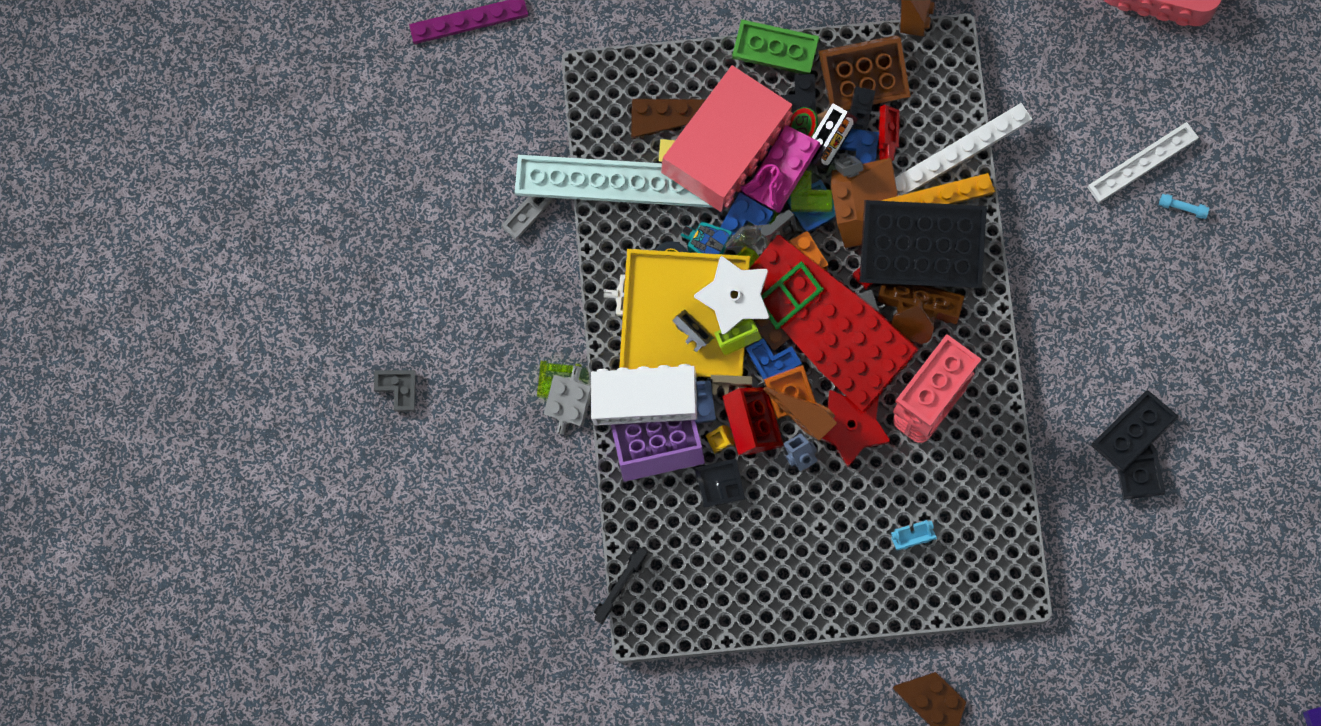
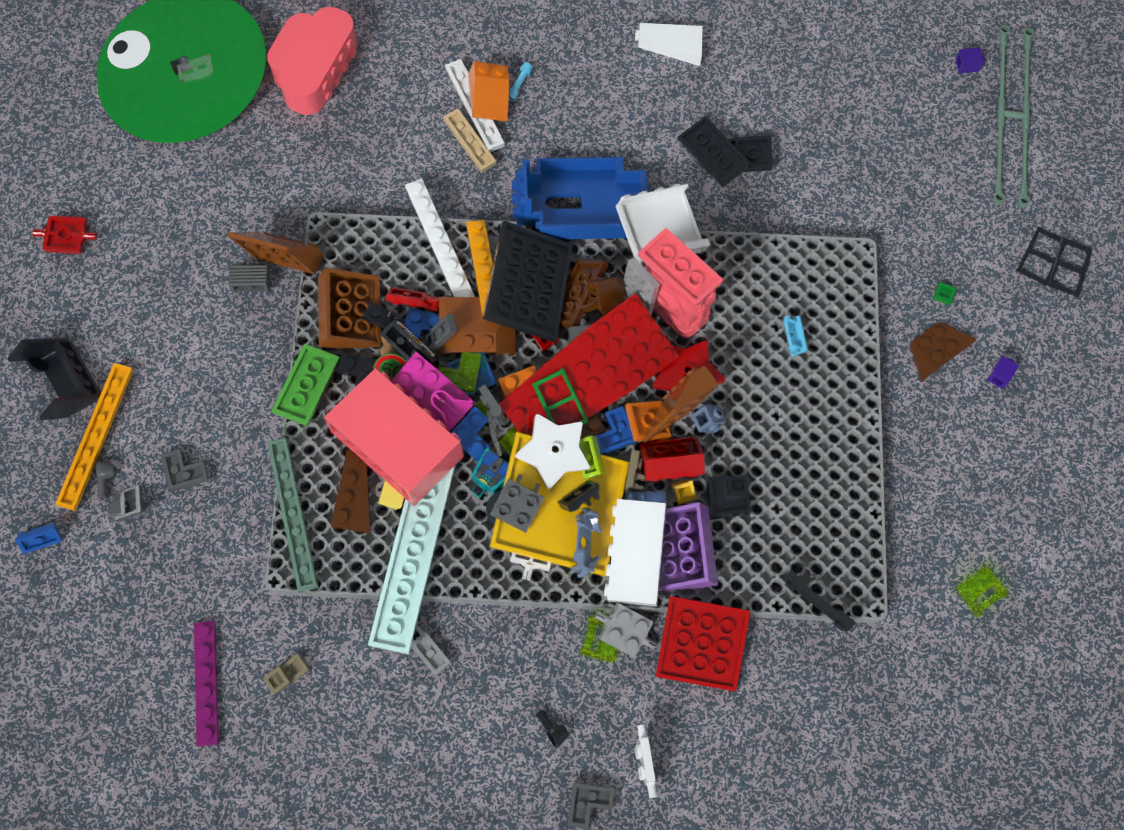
camera: 90 degrees left, 5 degrees down
(436, 435) = (646, 770): none -> white plate
(460, 348) = (556, 734): none -> black bar
(486, 90) = (286, 674): none -> dark tan slope
(564, 476) = (702, 643): none -> red plate
(639, 61) = (292, 515): none -> sand green tile
(661, 339) = (586, 524): none -> sand blue piece
(670, 267) = (517, 504): none -> dark grey plate
(924, 354) = (642, 283): none -> light grey plate
(1004, 708) = (944, 293): none -> green tile
(1018, 376) = (652, 212): none -> white panel
(1049, 323) = (595, 180): none -> blue panel
(1097, 164) = (469, 140): none -> tan plate
(1158, 173) = (489, 91): none -> orange slope
(1273, 370) = (674, 41): none -> white slope

